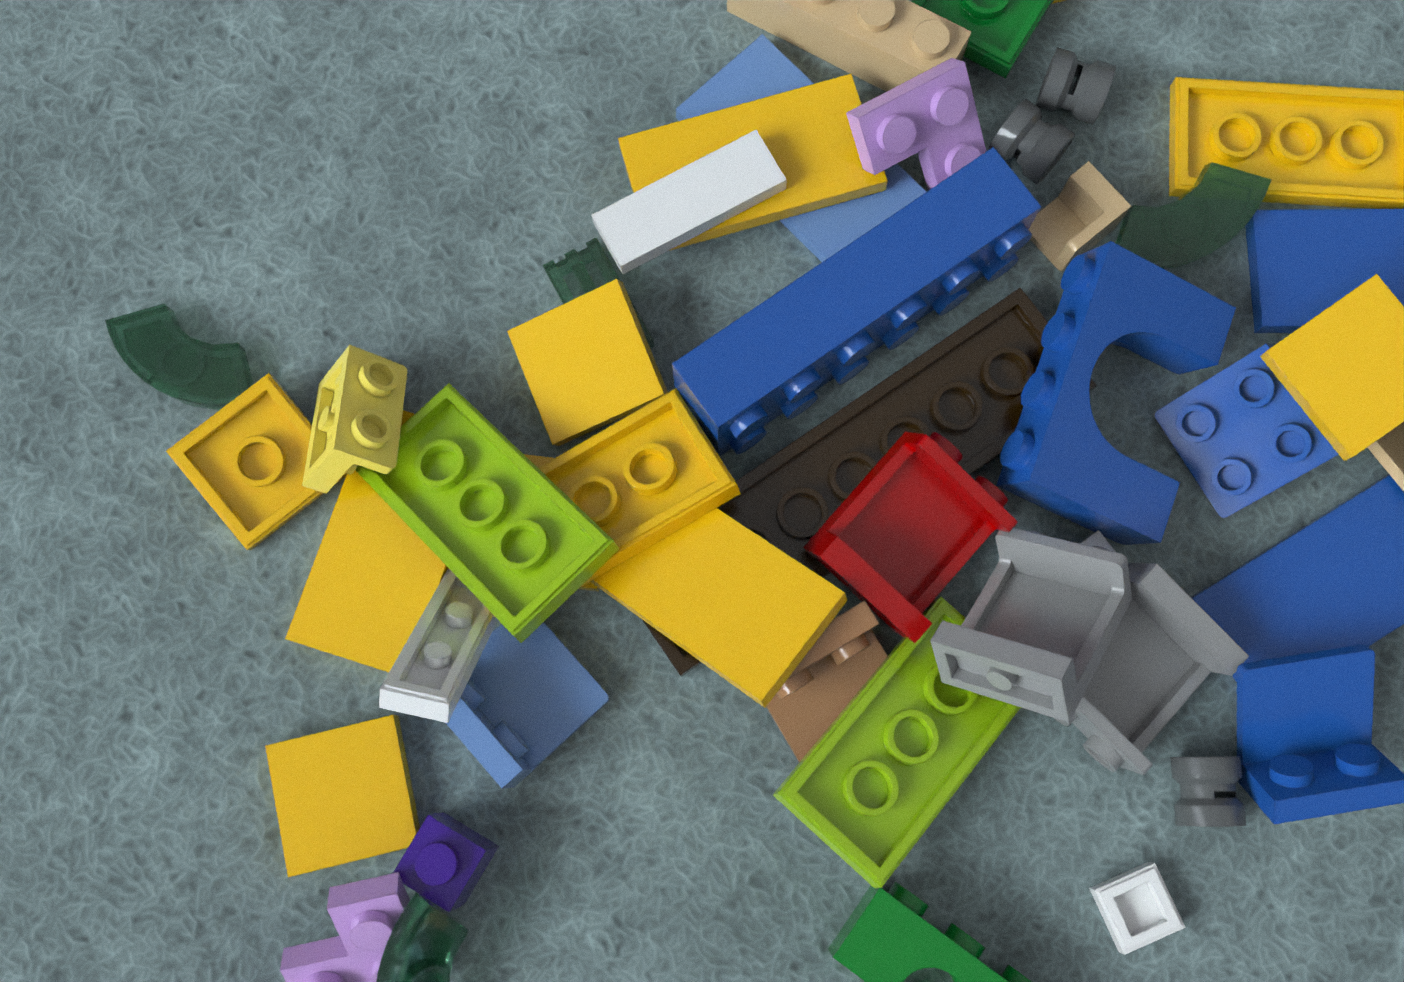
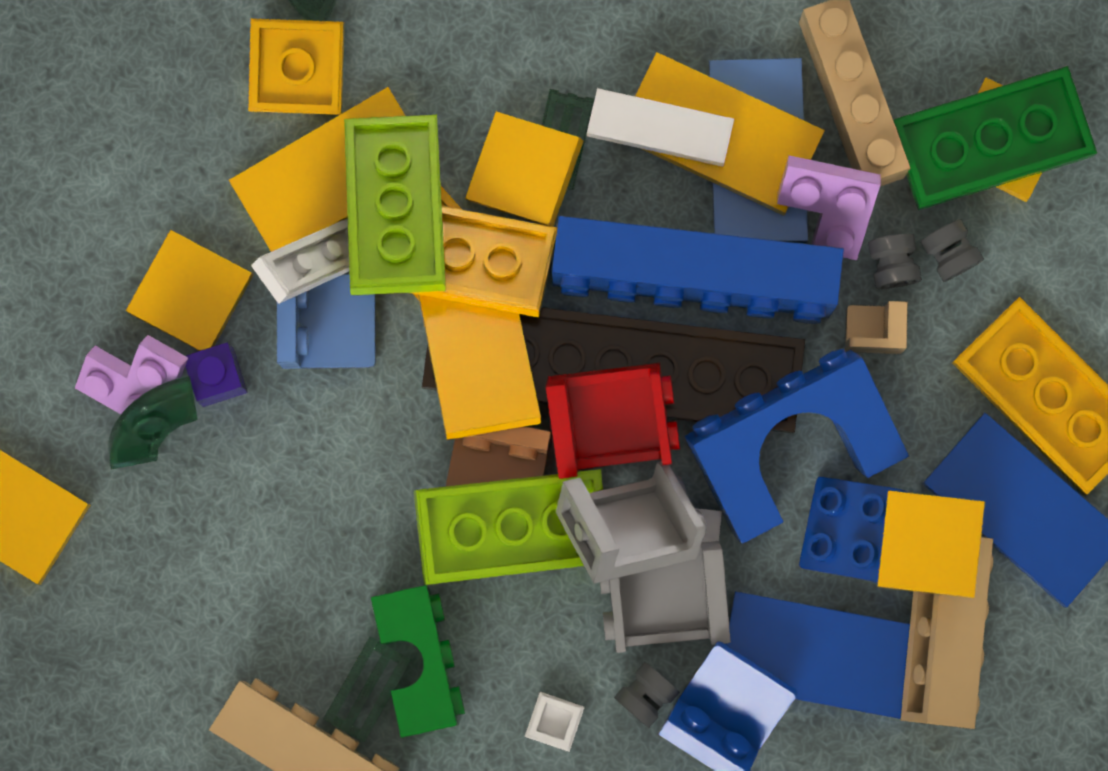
camera: 40 degrees right, 5 degrees up
(355, 418) = (368, 90): light yellow bracket -> none
(1197, 221) = (940, 389): clear green tile -> none

